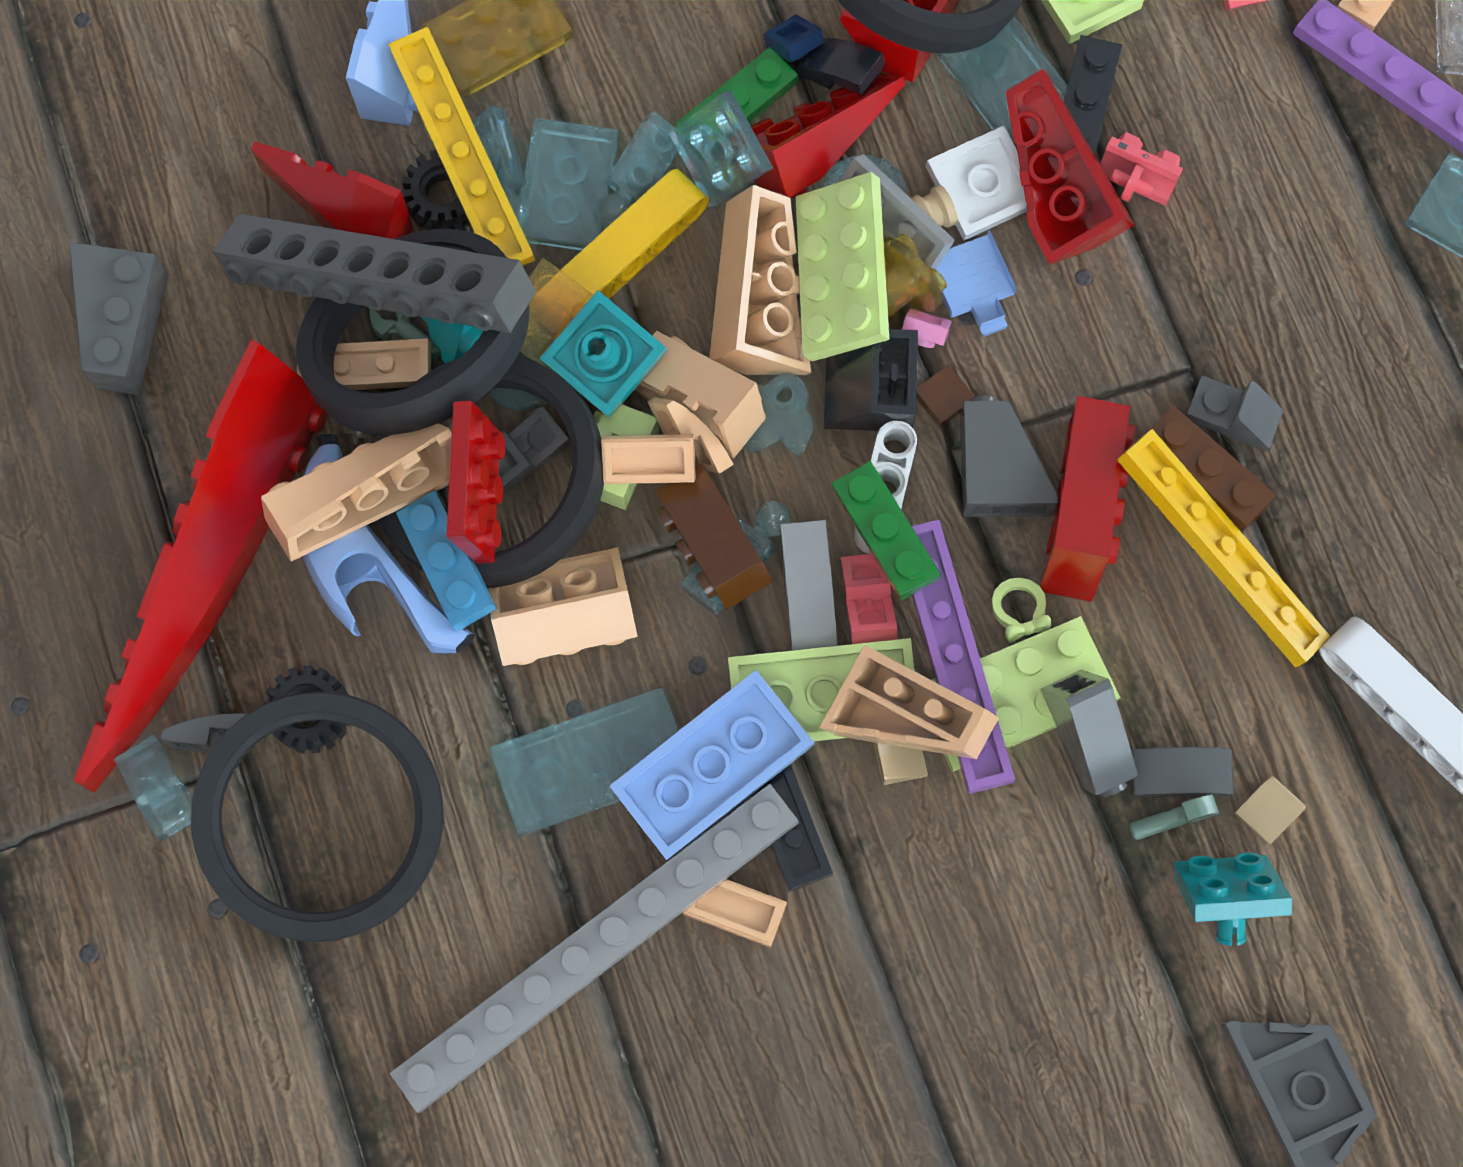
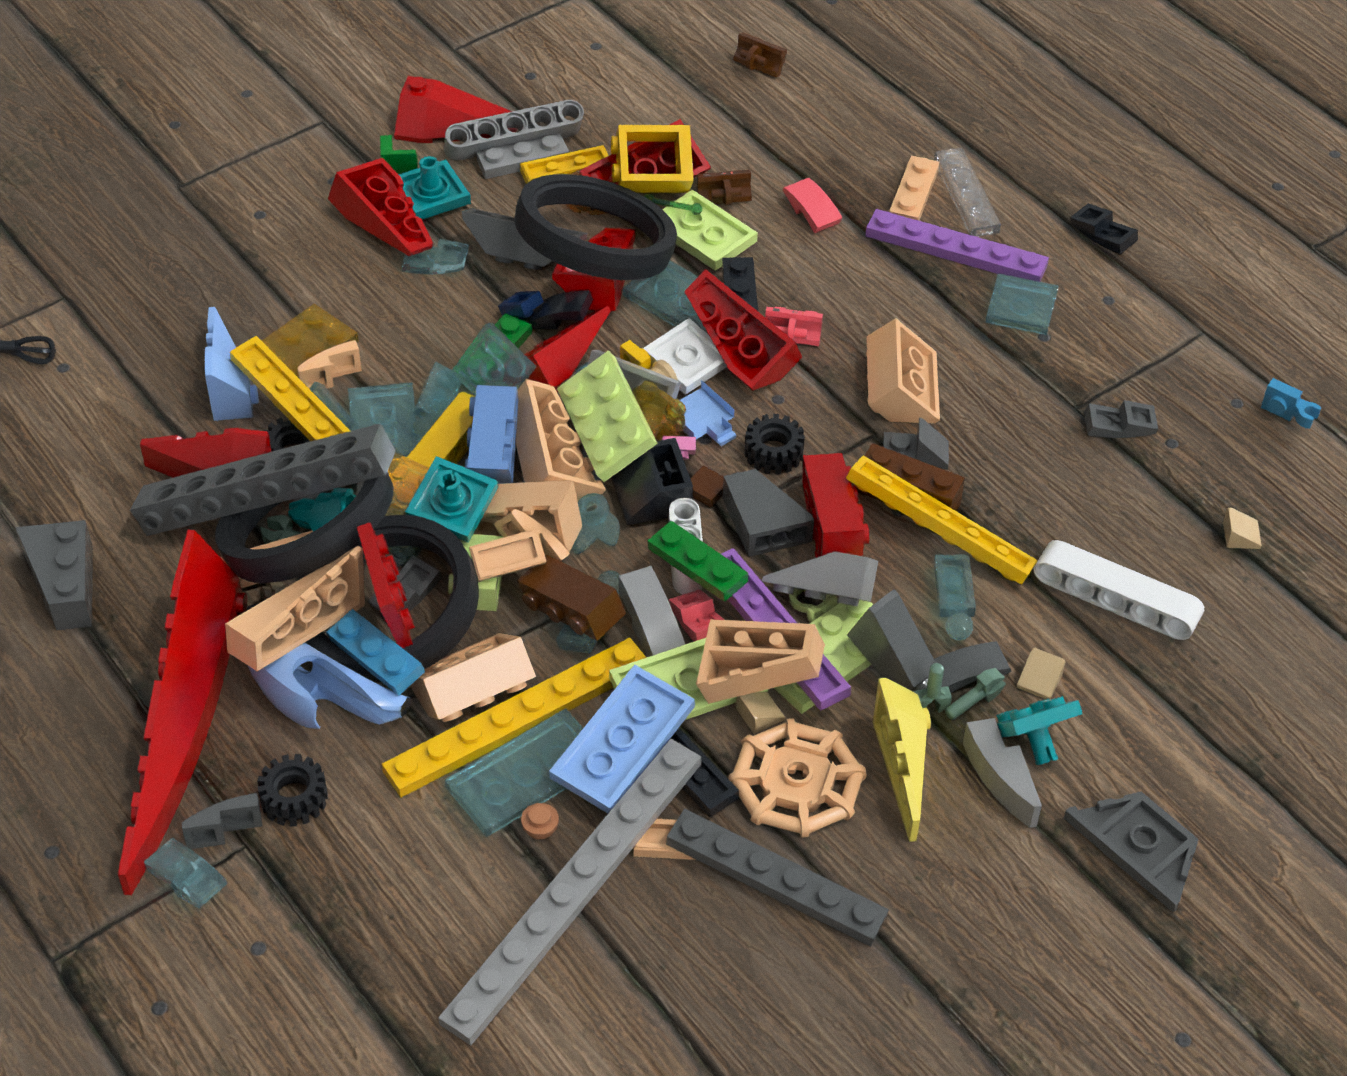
camera: 20 degrees left, 25 degrees down
(213, 782) = (332, 768): black tyre -> none
(505, 81) = (331, 363): none -> light nougat slope
(585, 837) = (539, 820): none -> nougat plate
(600, 677) = (507, 720): none -> yellow plate
(687, 261) = (493, 432): none -> medium blue wedge
(841, 1006) = (777, 877): none -> dark grey plate
(913, 896) = (793, 794): none -> light nougat plate
(914, 171) = (635, 355): none -> yellow plate
(1052, 603) = (833, 574): none -> light grey slope
(1059, 332) = (774, 457): none -> black tyre
(1061, 855) = (901, 733): none -> light yellow wedge
(1124, 804) = (934, 690): none -> sand green bar
(1168, 940) = (1002, 770): none -> light grey slope
(1204, 656) = (955, 594): none -> clear light blue plate
(1257, 292) = (902, 375): none -> light nougat slope

